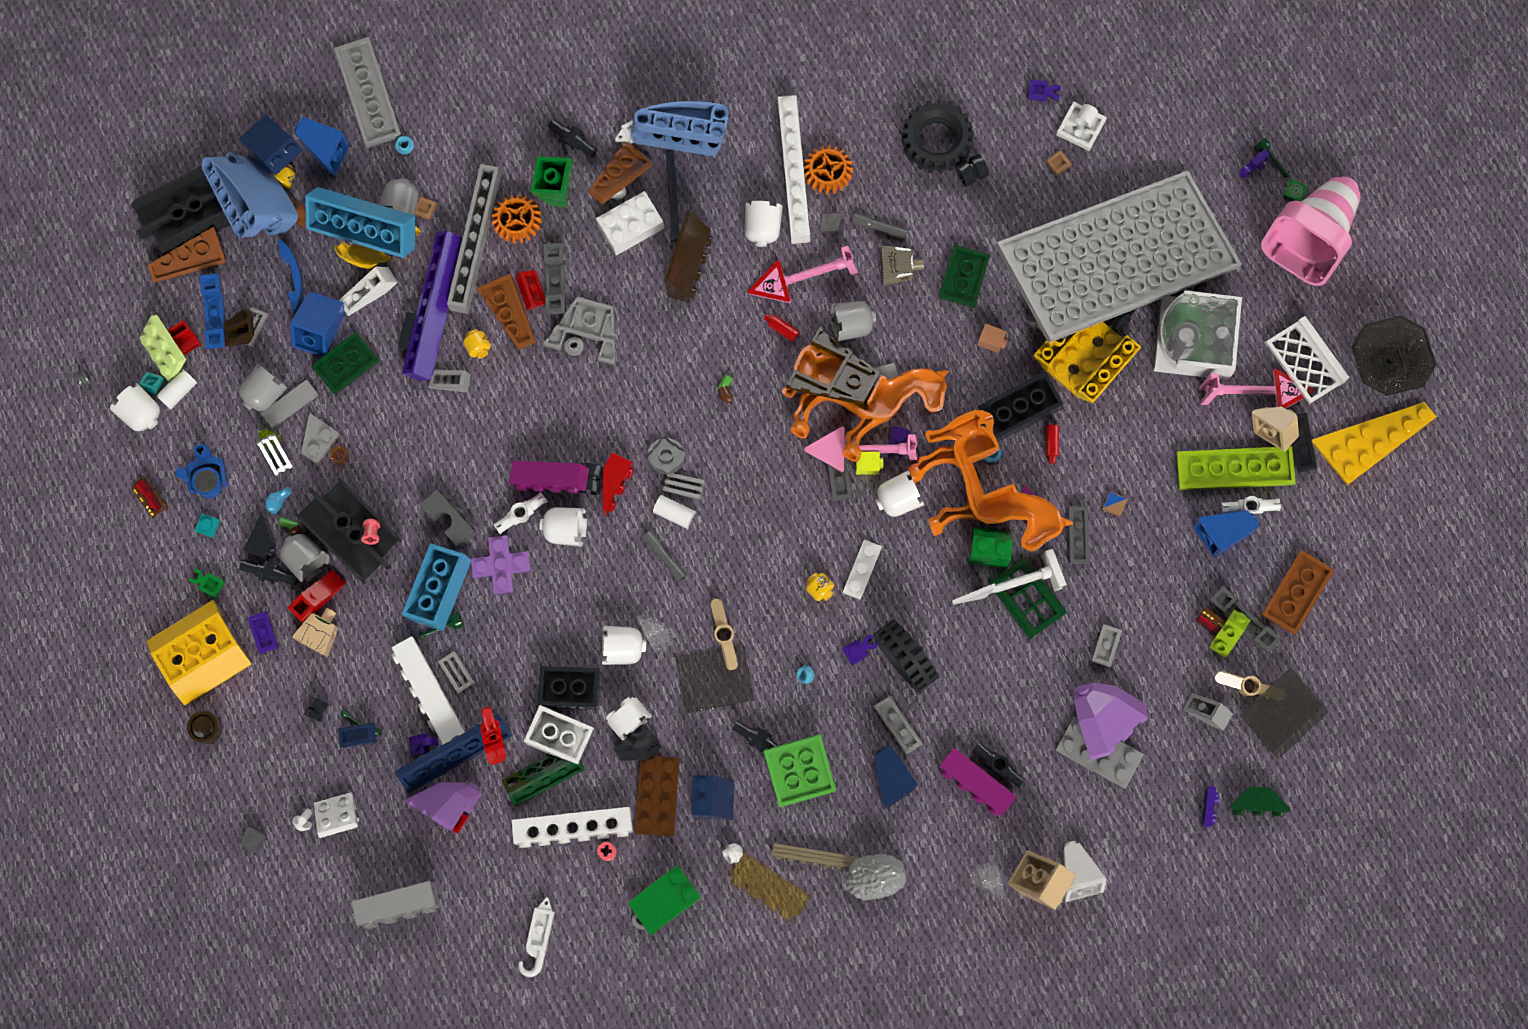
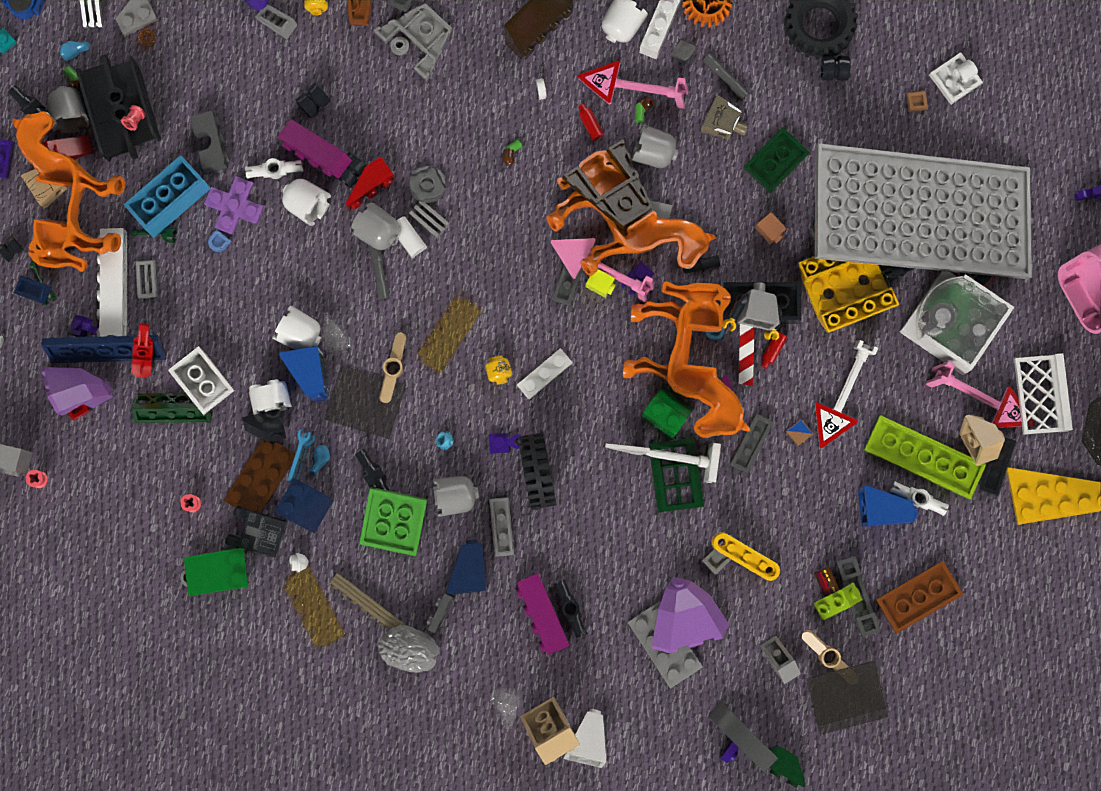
camera: 25 degrees right, 5 degrees up
(261, 541) = (41, 77): black slope -> none
(334, 610) = (62, 170): none -> orange animal
(456, 909) = (31, 481): none -> coral bush
(504, 604) = (218, 241): none -> medium blue tile
(522, 434) = (312, 100): none -> black wheel
(522, 826) = (128, 444): white brick -> none
(538, 937) = (94, 545): white plate -> none
(569, 688) = (233, 344): black brick -> none
(643, 517) = (376, 227): none -> light grey cylinder
(650, 676) = (309, 371): none -> blue slope
(682, 741) = (302, 449): none -> dark azure flag
(684, 845) = (260, 532): none -> black flag
(702, 748) = (321, 457): none -> dark azure animal
(721, 319) = (541, 88): none -> white tile
(760, 576) = (453, 332): none -> clear yellow windscreen
(820, 290) = (641, 107): none -> arm
(841, 718) = (454, 495): none -> light grey cylinder
(884, 820) = (435, 620): none -> dark grey plate
(898, 495) = (611, 325): white cylinder -> none
(951, 399) = (704, 263): none -> black axle
(1022, 414) = (757, 310): none -> light grey torso
(1029, 454) = (746, 355): none -> sticker
(1040, 91) = (936, 27): dark purple plate -> none
(1128, 636) = (745, 556): none -> yellow plate
(1138, 479) = (833, 422): none -> white piece
(1213, 795) = (742, 737): none -> dark grey slope

